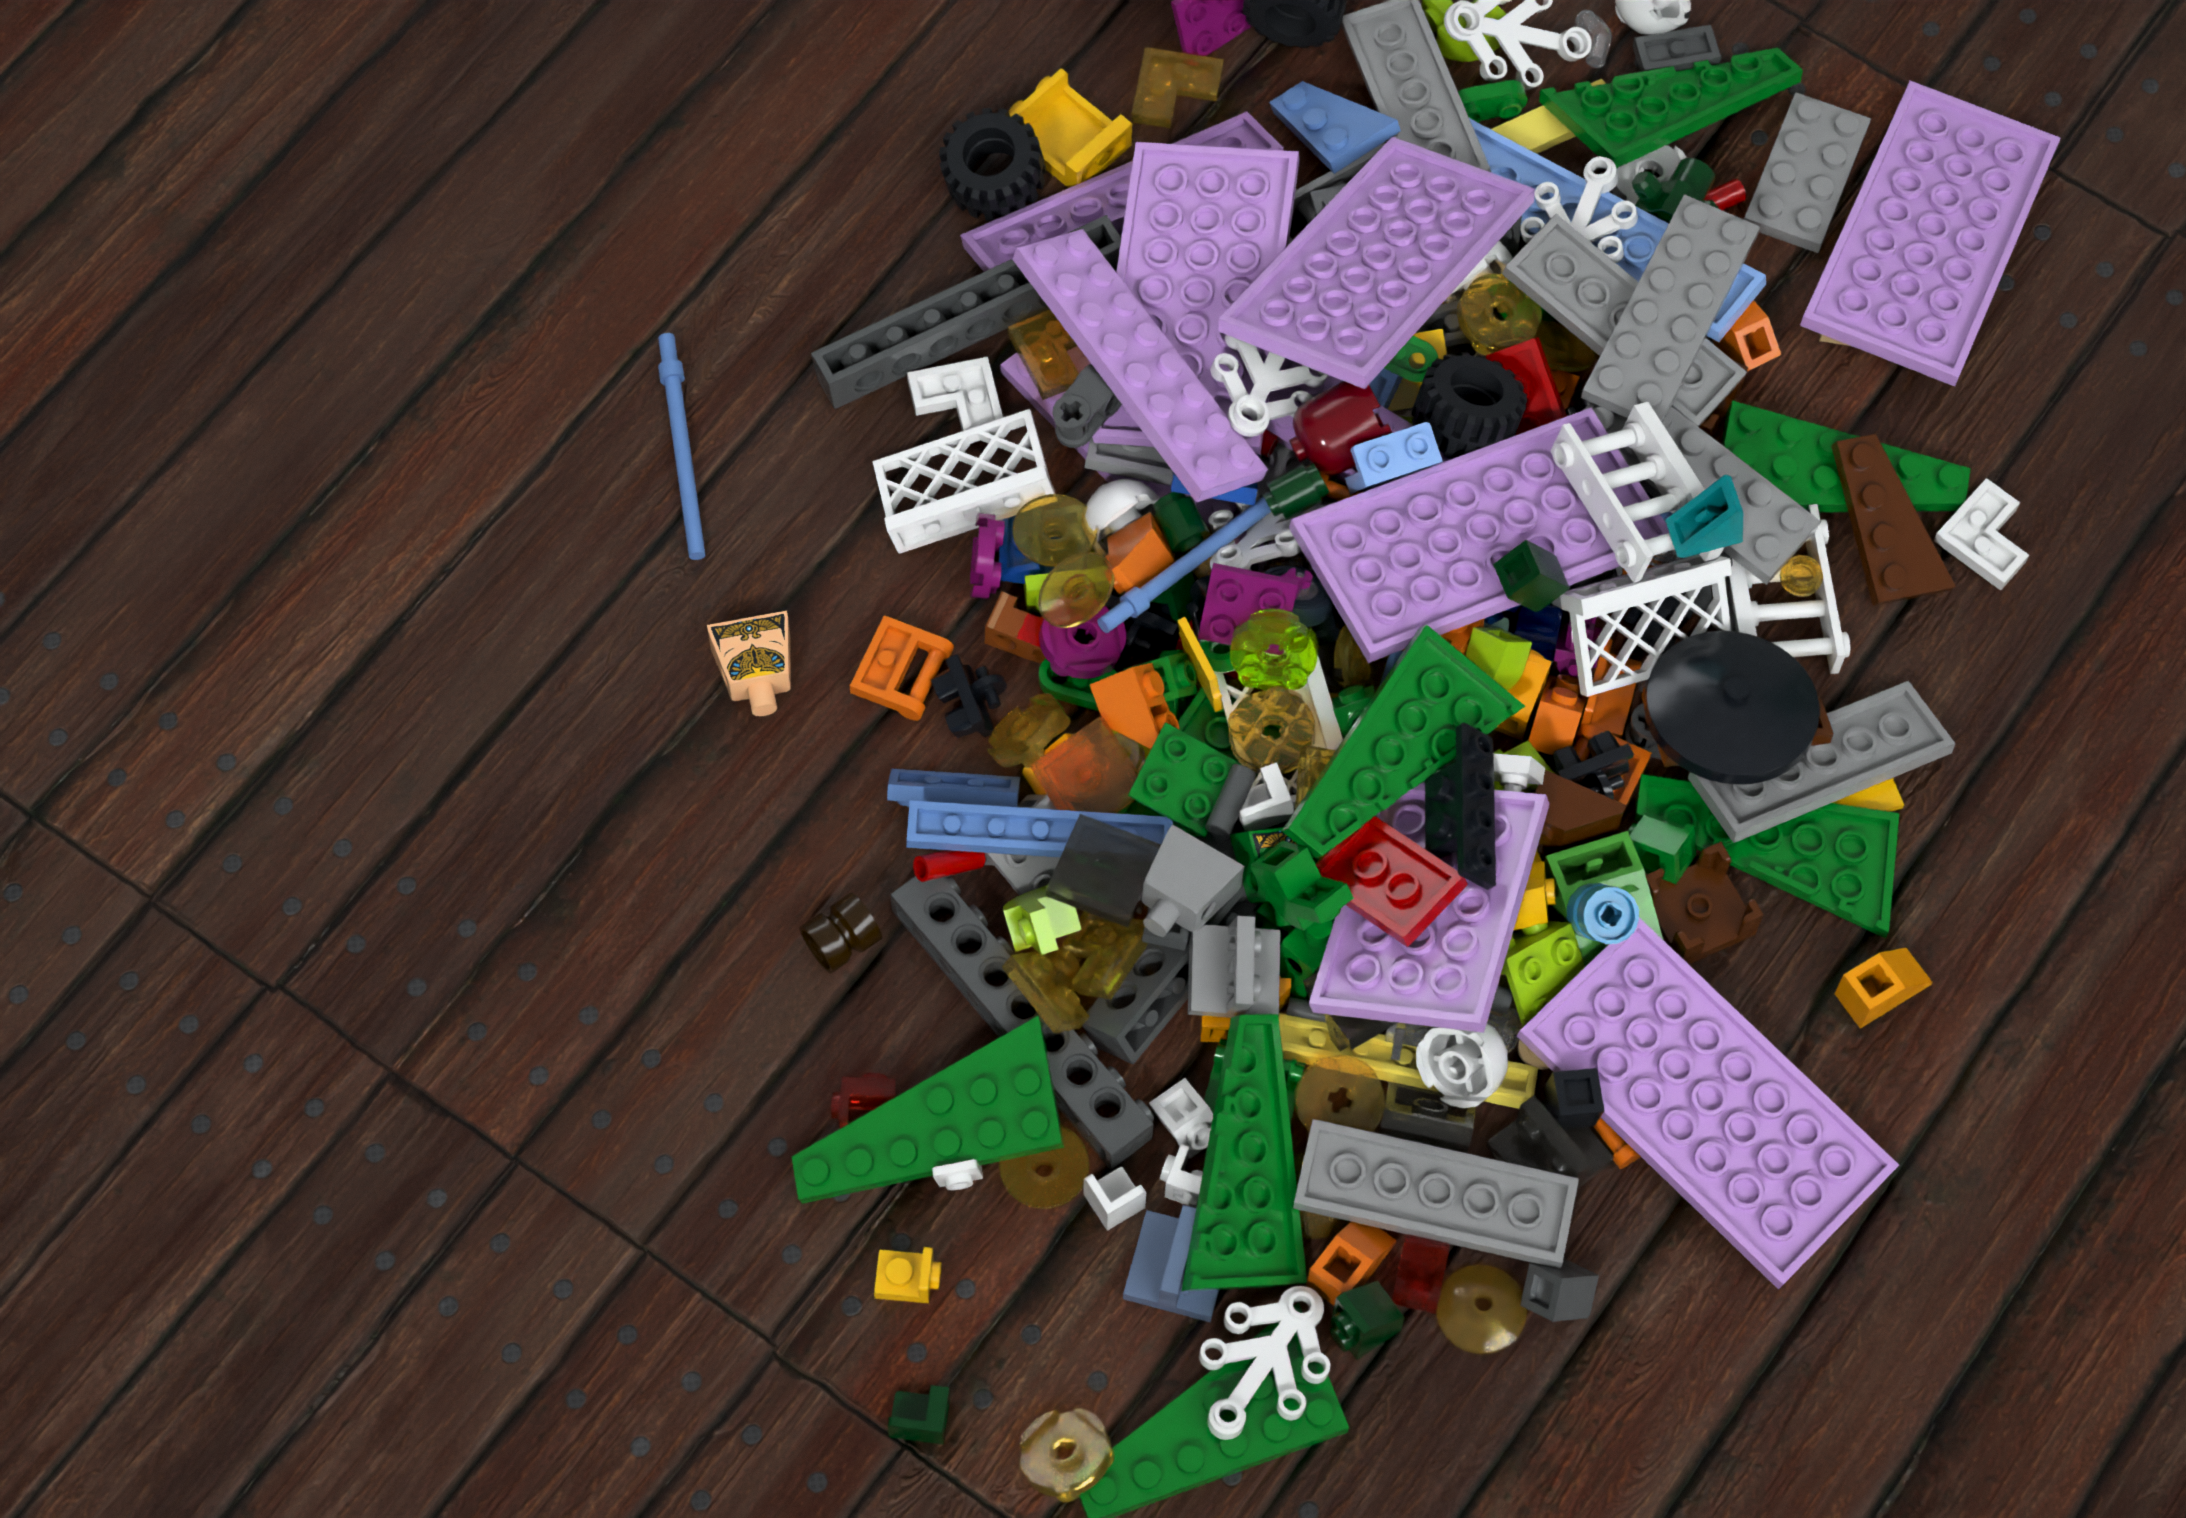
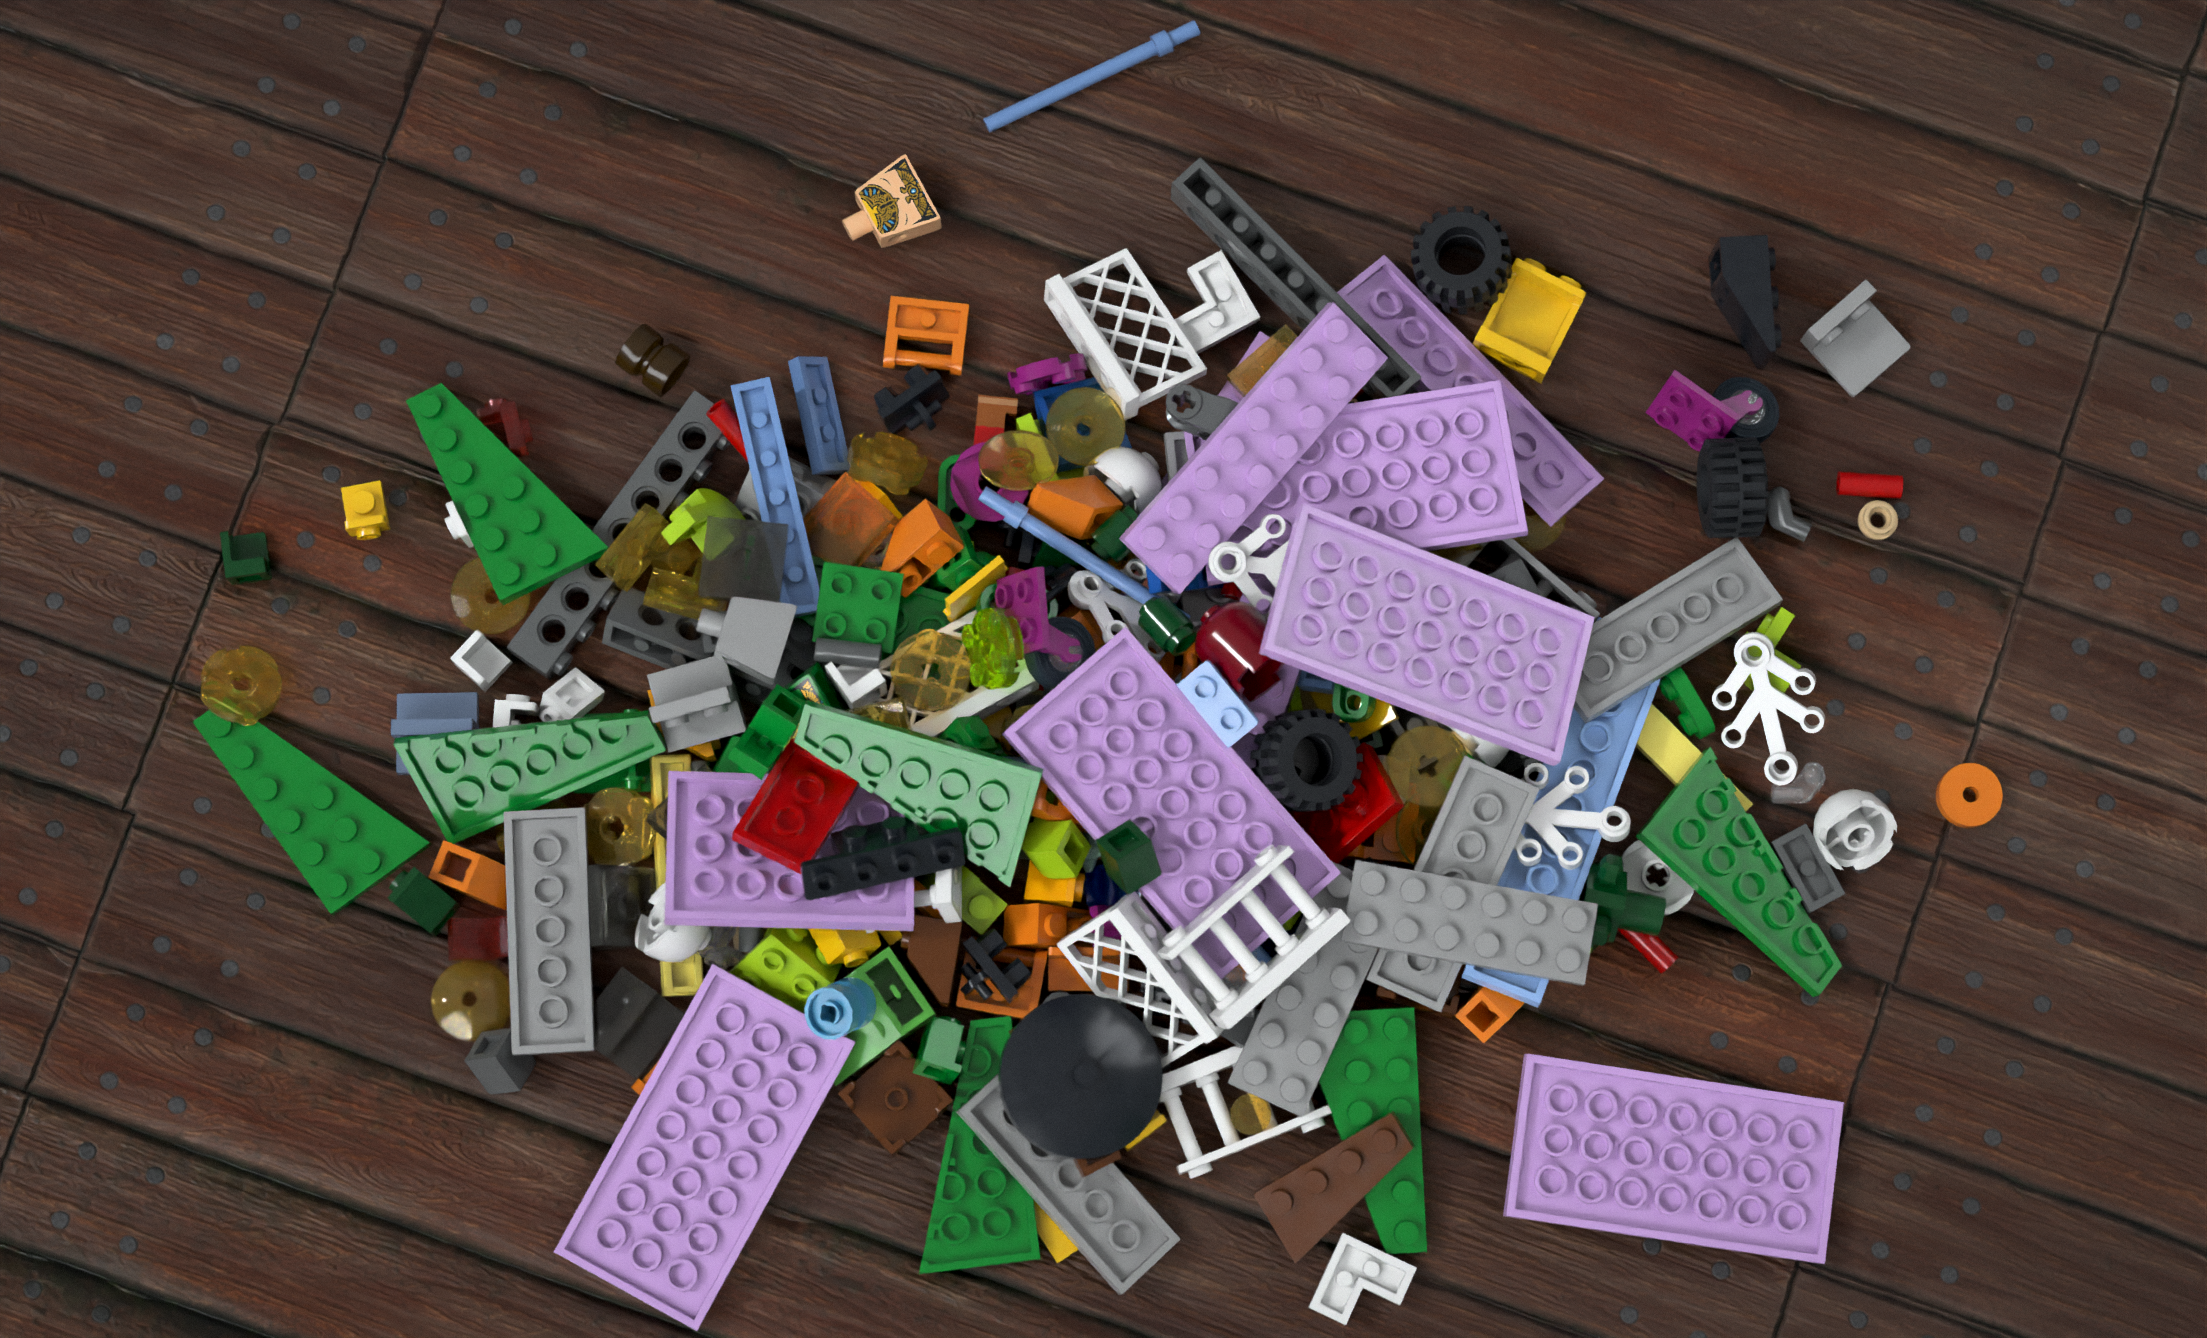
camera: 70 degrees right, 15 degrees up
(1171, 74) = (1621, 393): clear yellow plate -> none
(1269, 1354) = (368, 830): white plant -> none
(1332, 125) = (1605, 559): medium blue wing -> none
(1574, 1098) = (664, 1027): black panel -> none
(1708, 520) = (1222, 1001): teal slope -> none
(1807, 172) = (1712, 1026): light grey plate -> none
(1881, 985) = (867, 1281): light orange slope -> none

